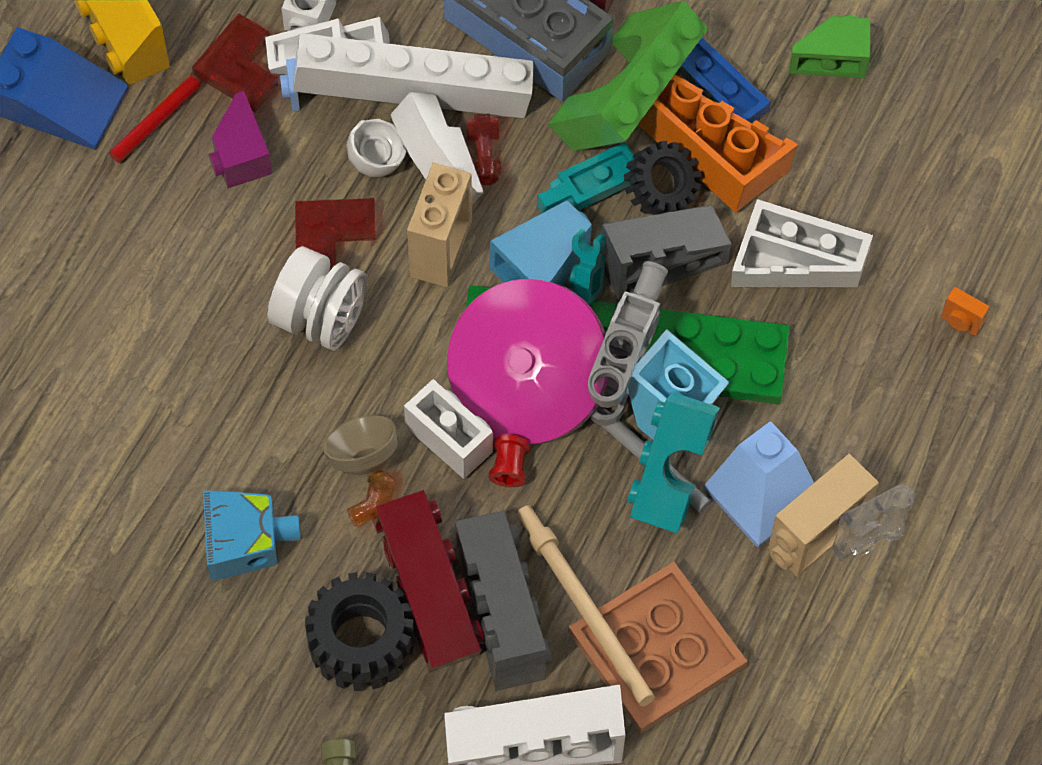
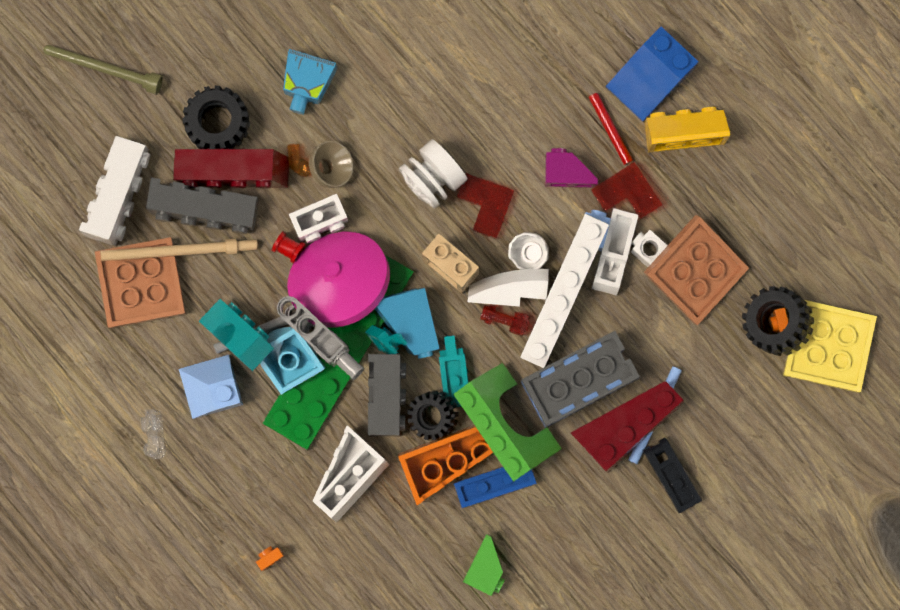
camera: 115 degrees right, 20 degrees up
(810, 522) = (170, 406): tan window -> none

